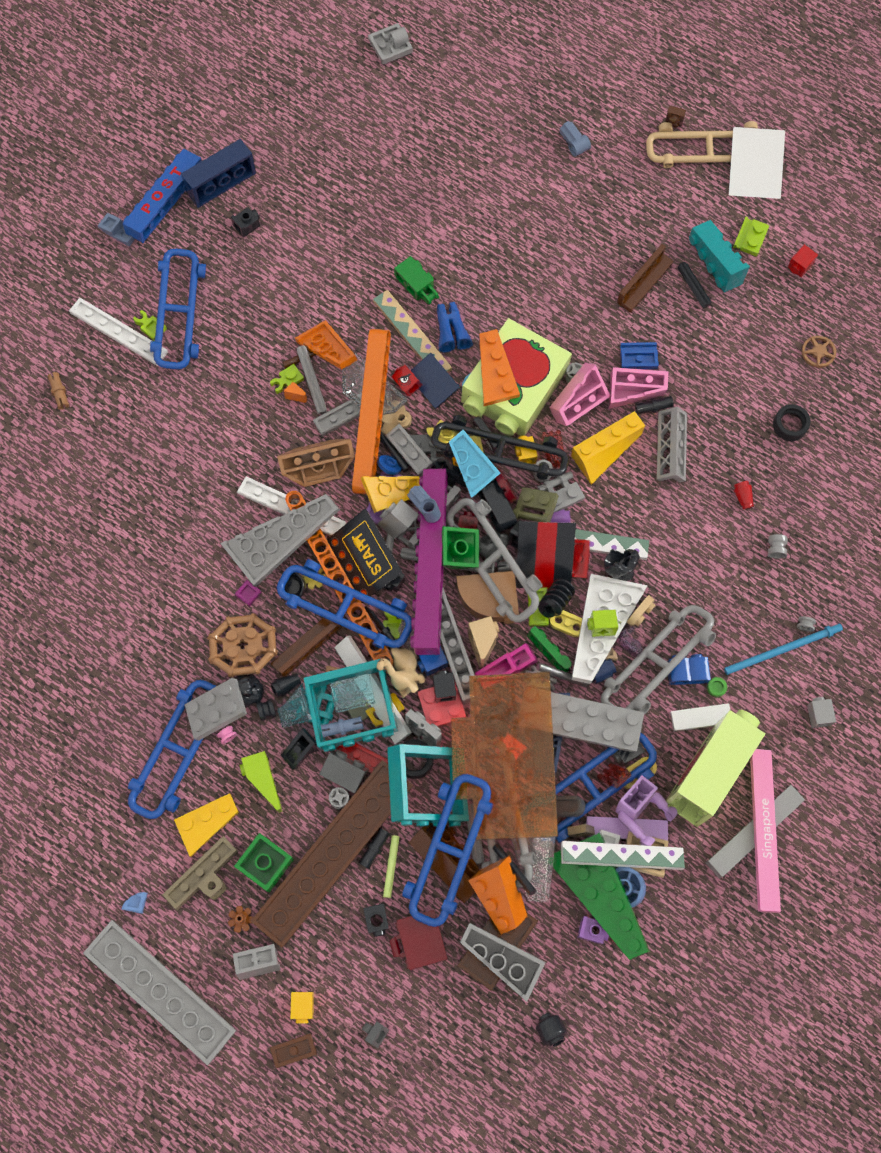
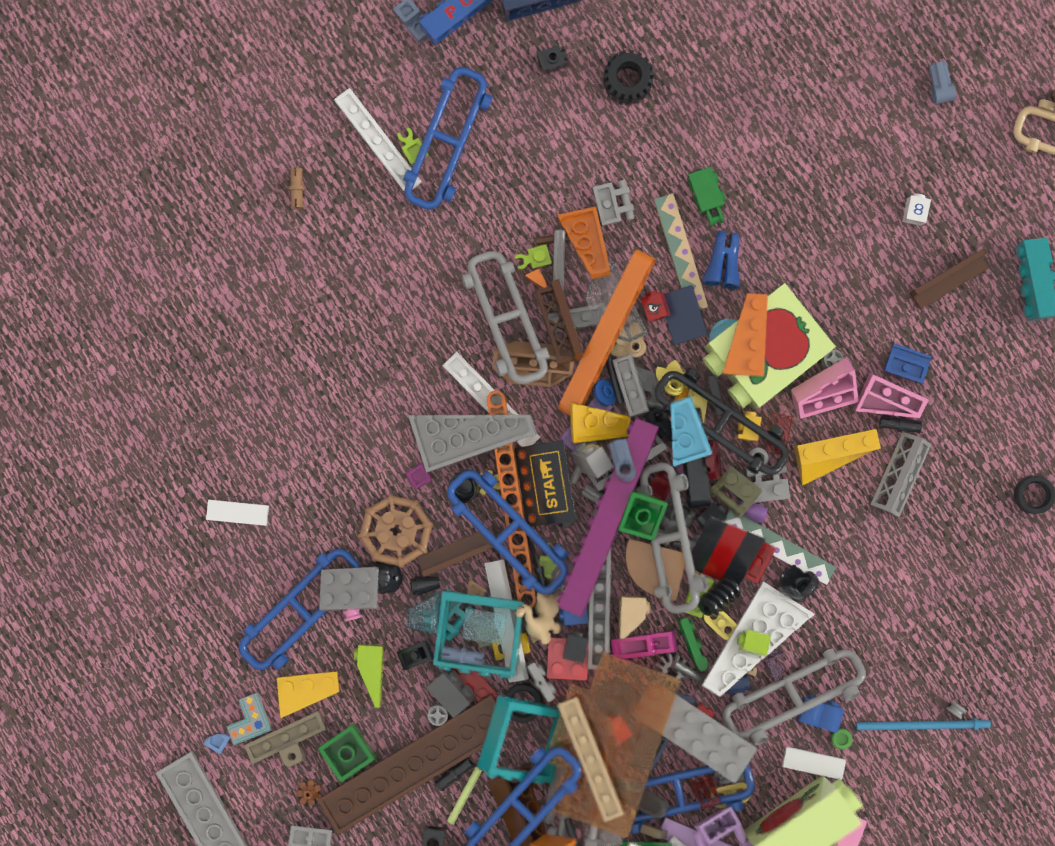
camera: 20 degrees right, 15 degrees up
(89, 682) = (237, 512): none -> white tile
(166, 871) = (255, 721): none -> light grey tile
(266, 709) = (397, 603): black wheel -> none
(290, 462) = (505, 366): none -> light grey bar
(315, 201) = (630, 61): none -> black tyre
(332, 415) = (566, 320): none -> reddish brown fence
(335, 316) = (607, 204): none -> light grey plate
(495, 775) = (591, 759): none -> tan tile
(595, 236) = (916, 209): none -> white brick
(637, 617) = (792, 642): tan plate -> none
(694, 284) = (999, 302): black axle -> none
(744, 494) = (952, 554): red cone -> none
(777, 546) = (962, 620): light grey wheel -> none
(821, 712) = (931, 802): light grey brick -> none

